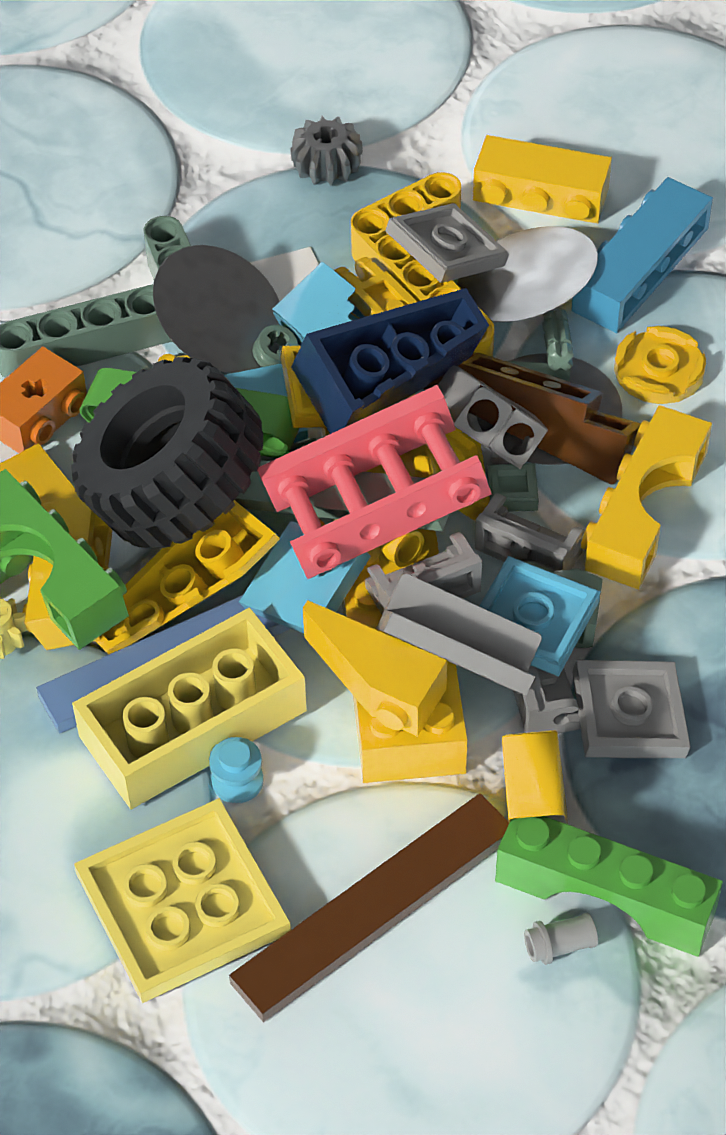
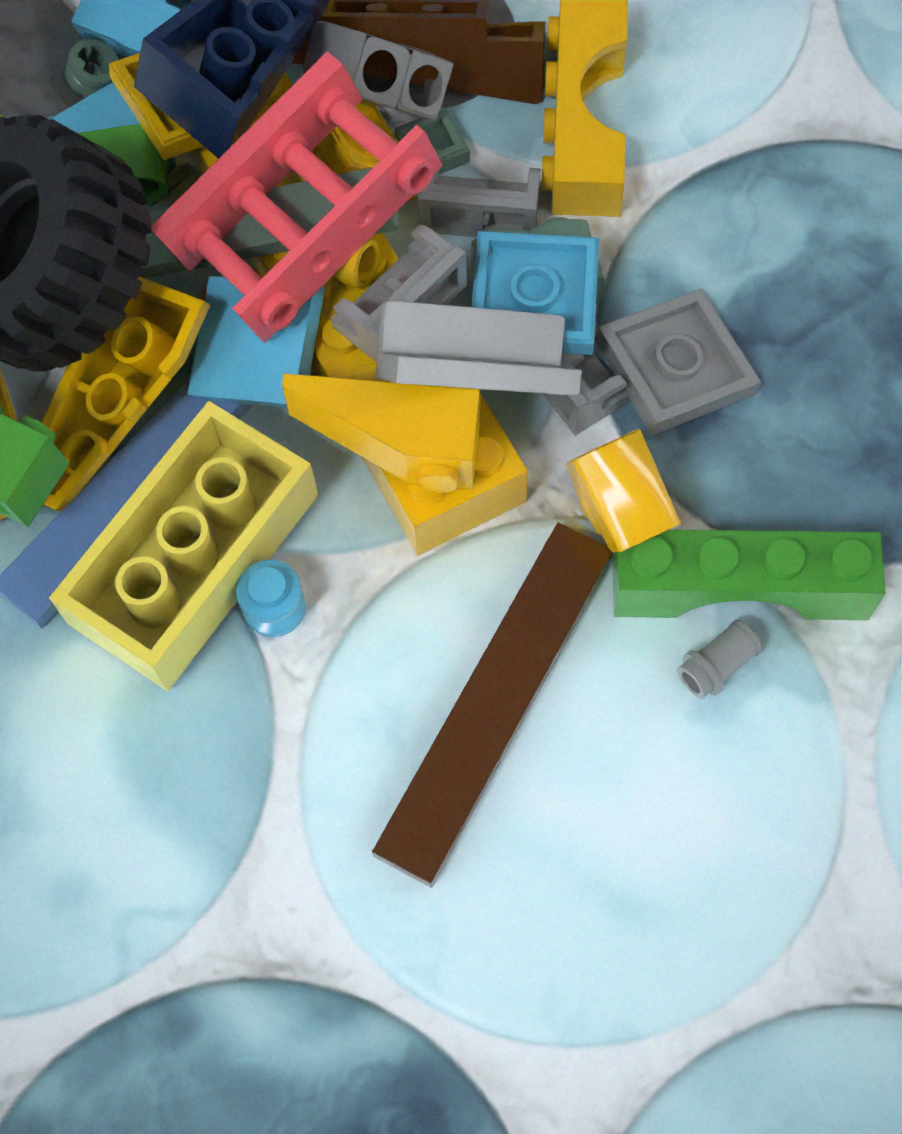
camera: 20 degrees left, 15 degrees up
(181, 899) = (276, 781): light yellow plate -> none

